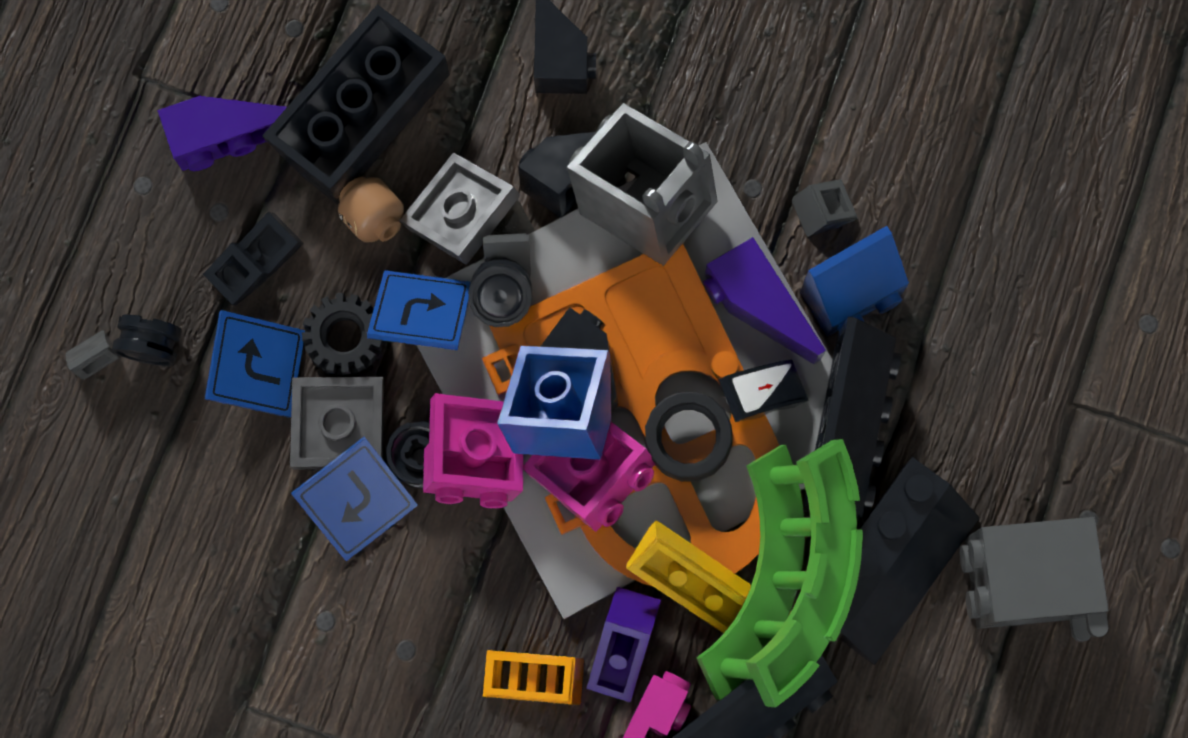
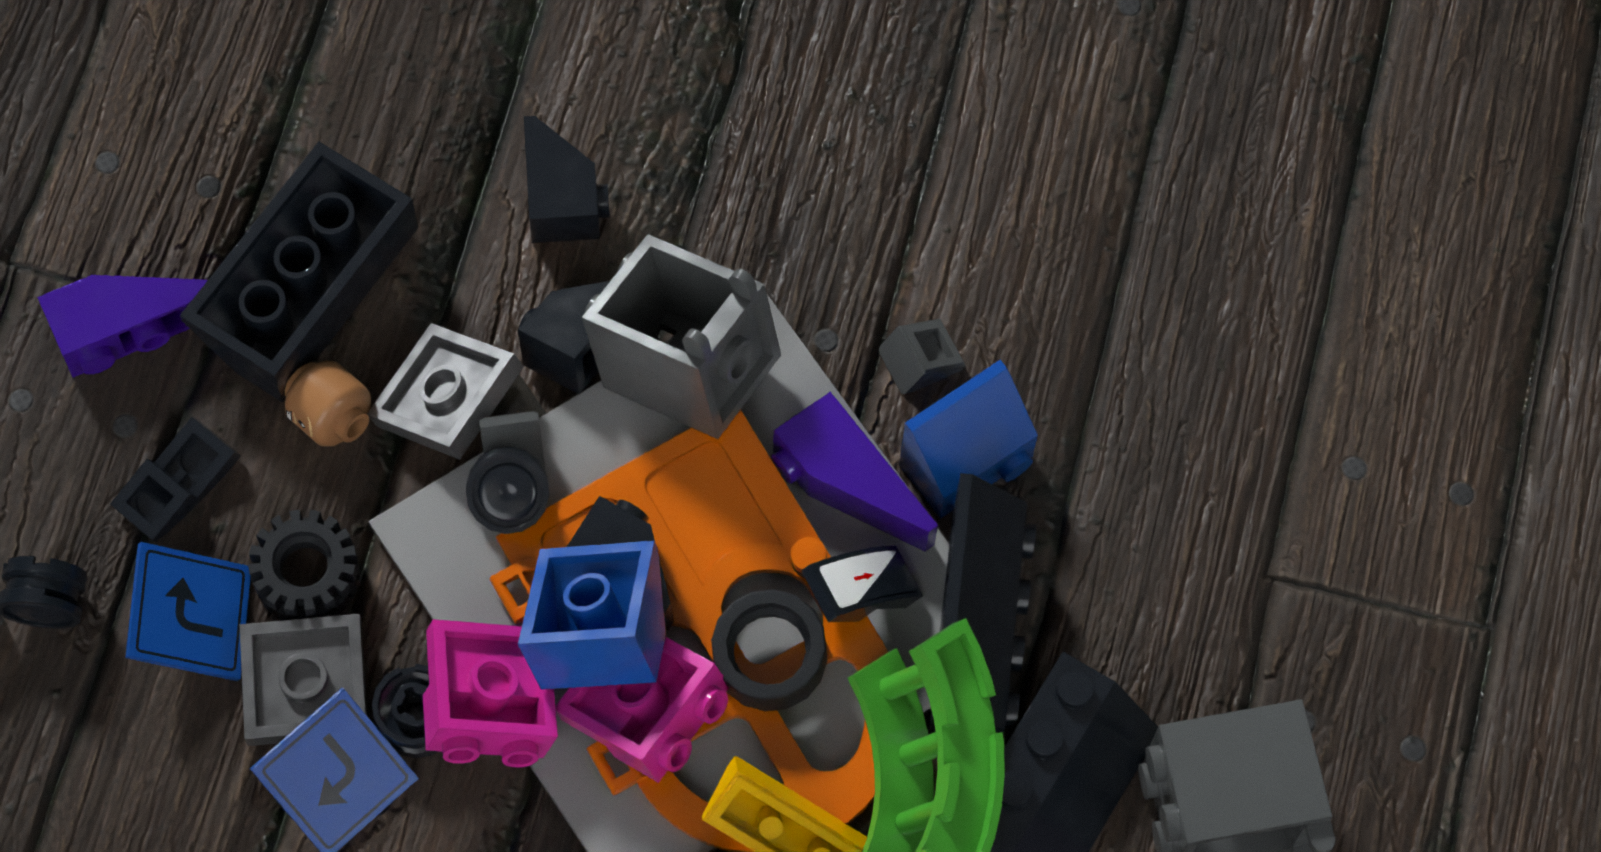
camera: 10 degrees left, 10 degrees down
(419, 310) = (403, 521): blue piece -> none

